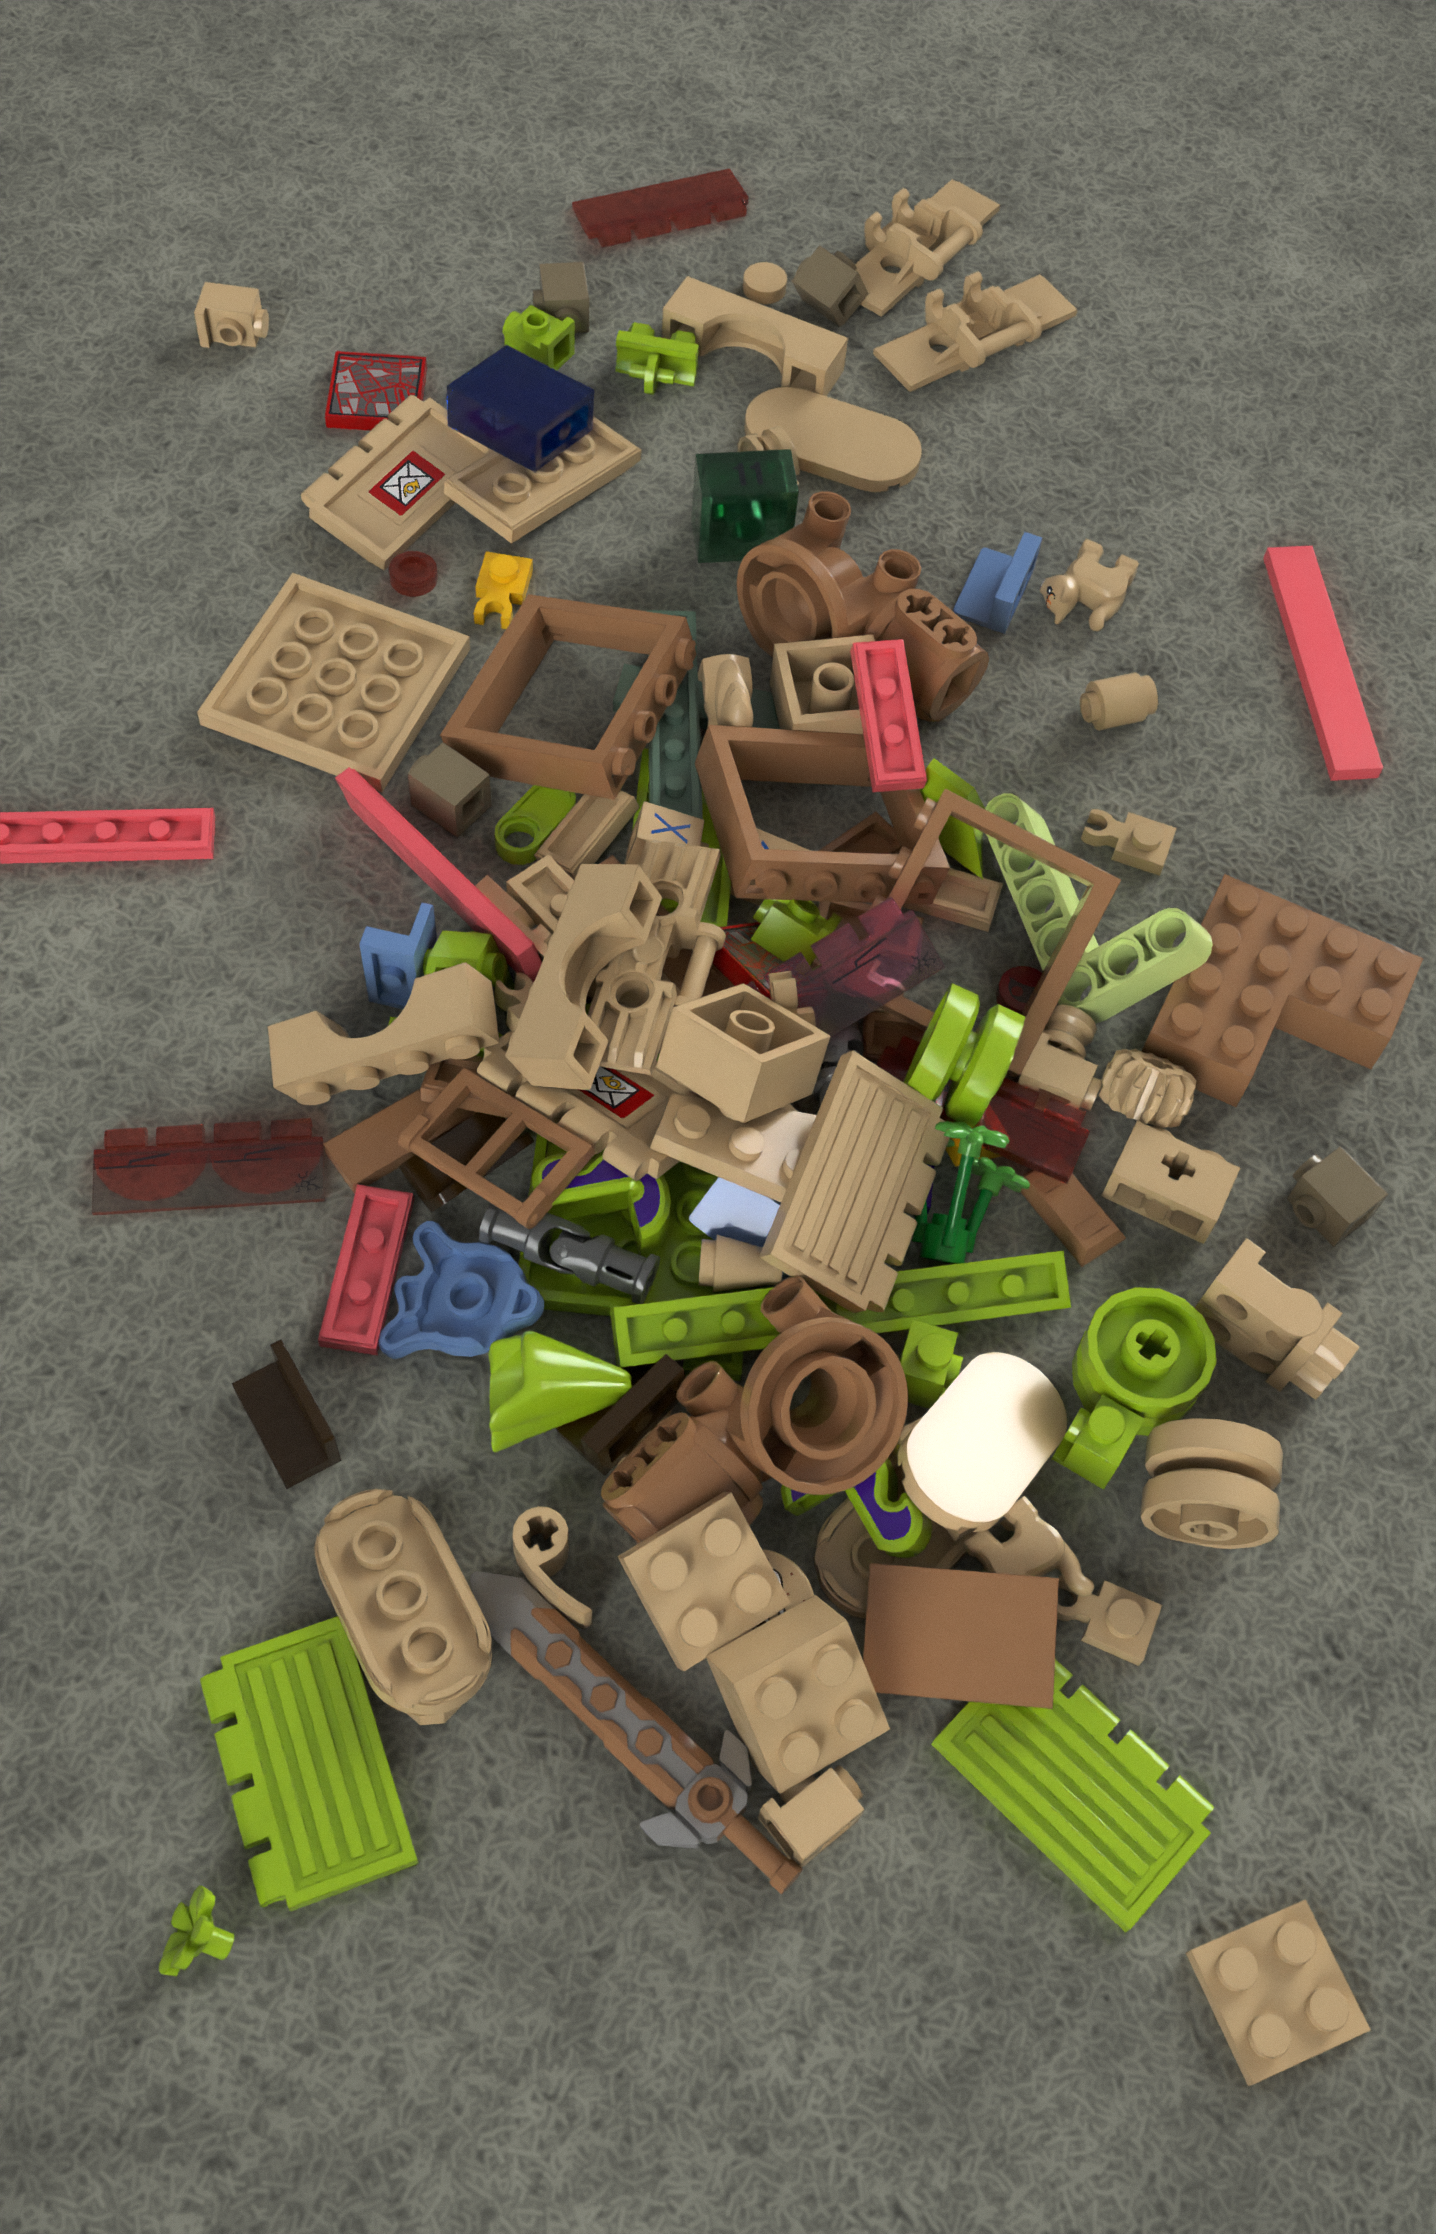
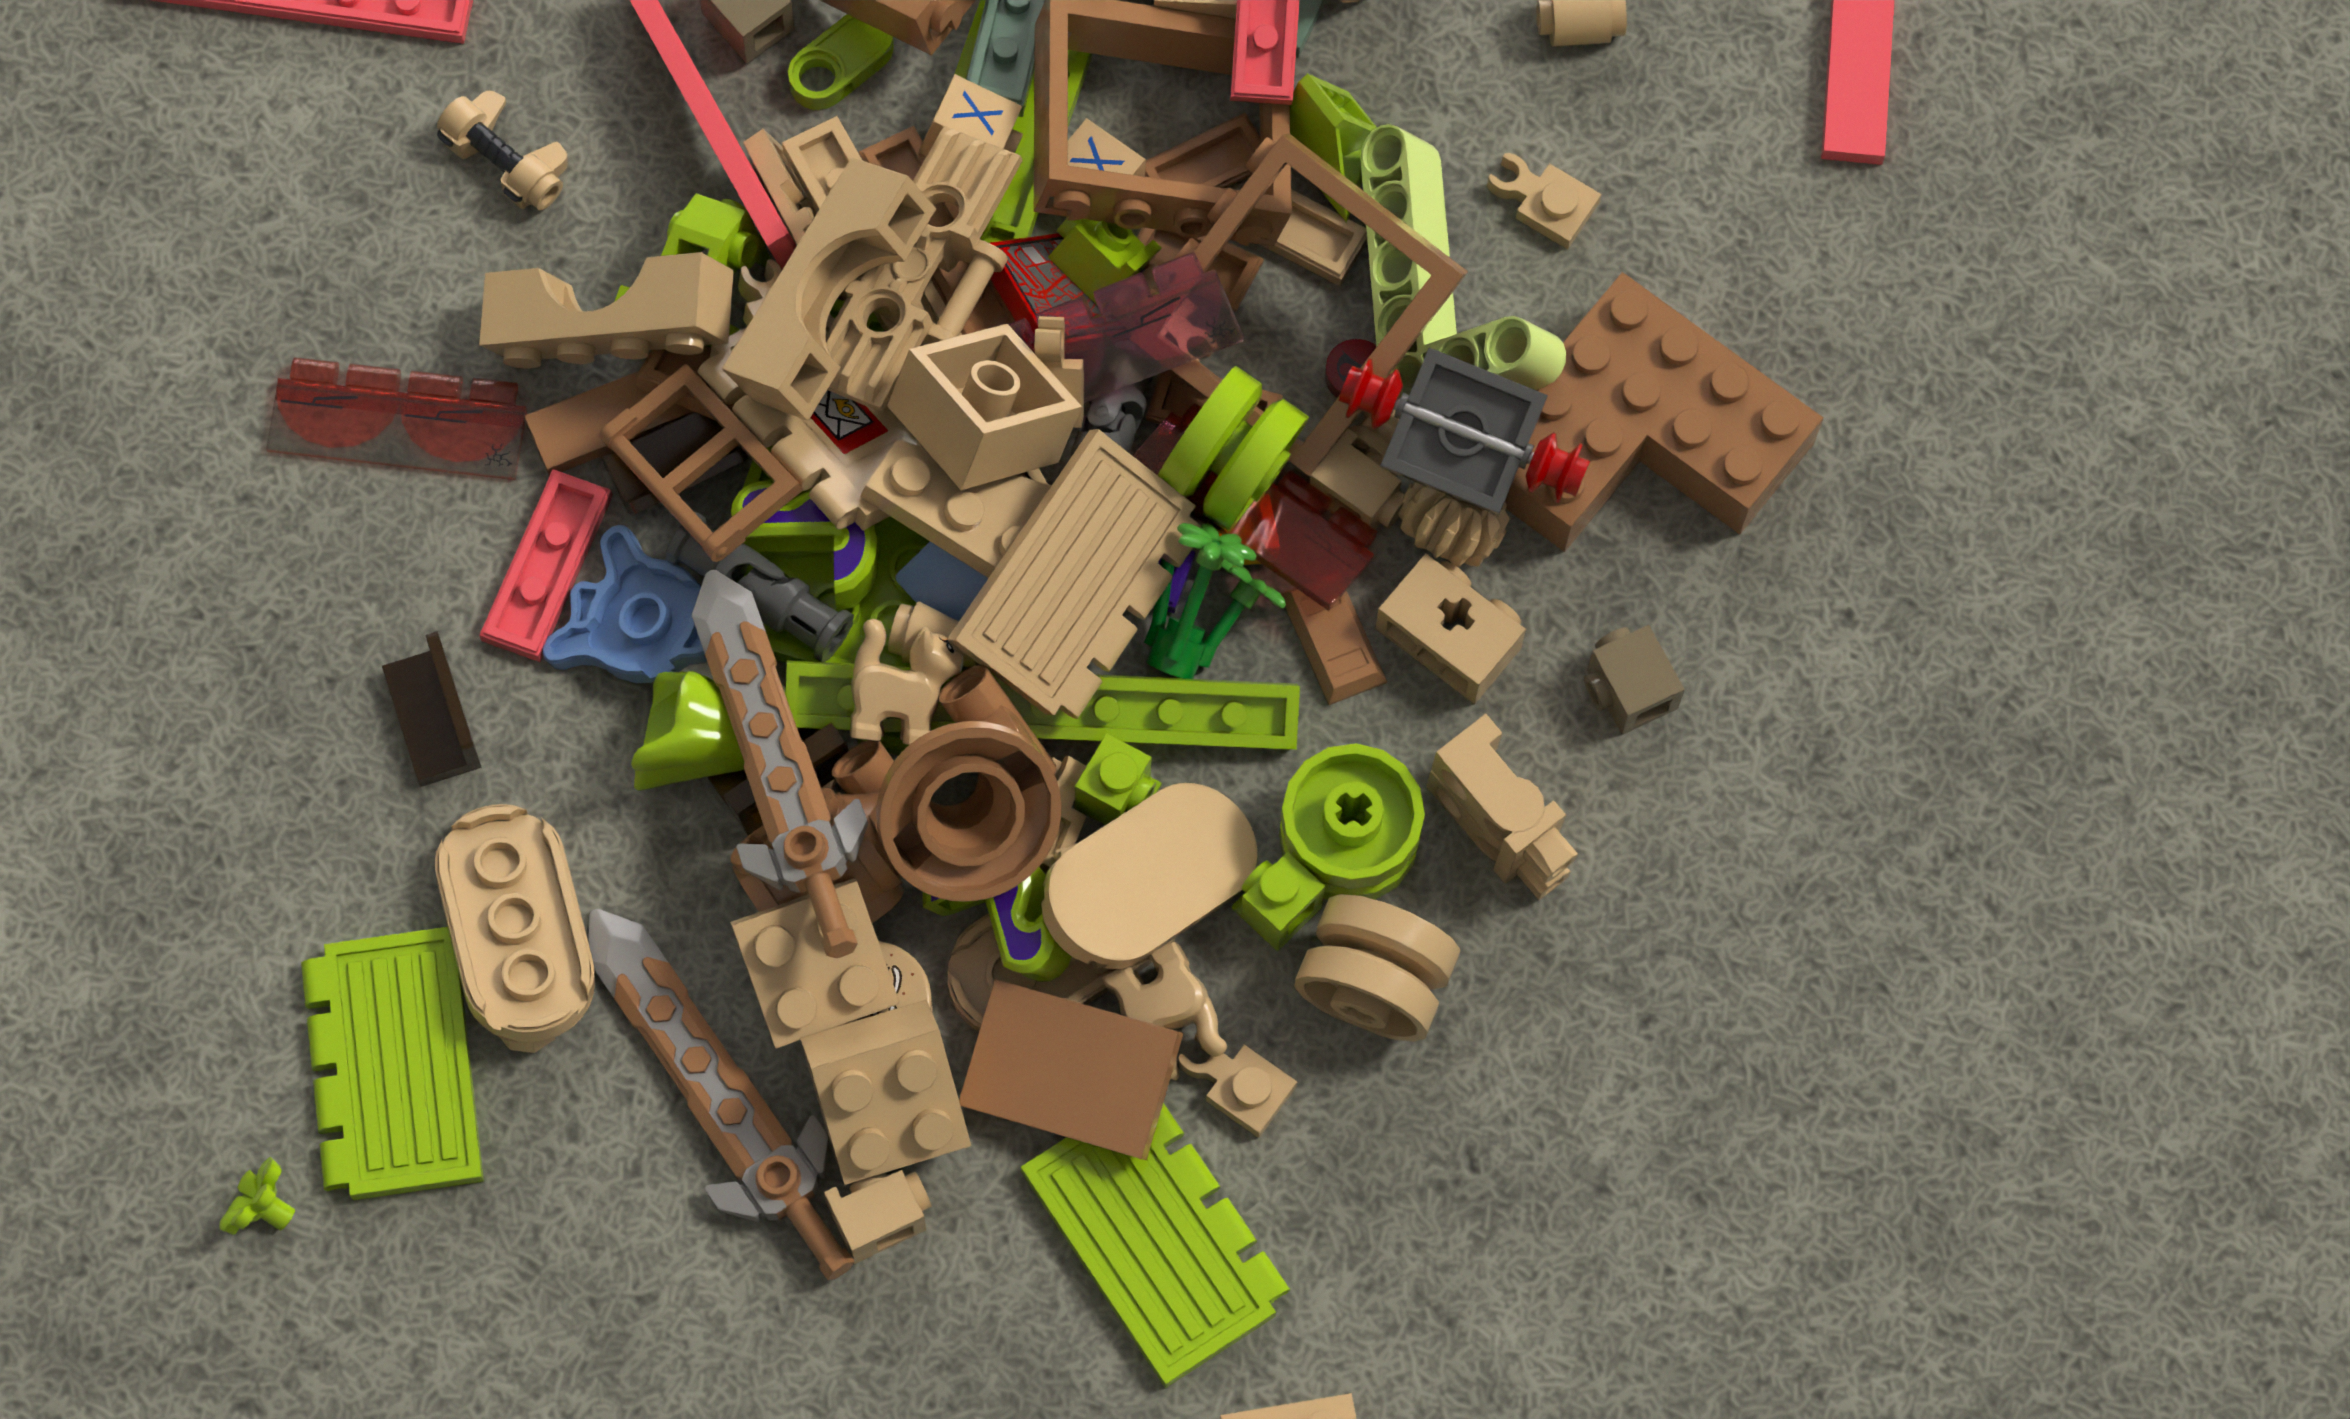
camera: 15 degrees right, 10 degrees up
(287, 953) = (526, 179): none -> tan piece
(395, 960) = (637, 225): medium blue panel -> none
(541, 1565) = (671, 914): tan panel -> none
(587, 831) = (893, 88): tan tile -> none
(635, 1404) = (777, 764): none -> sword
(714, 1315) = (892, 692): none -> tan animal
(1153, 1008) = (1463, 431): none -> dark grey plate

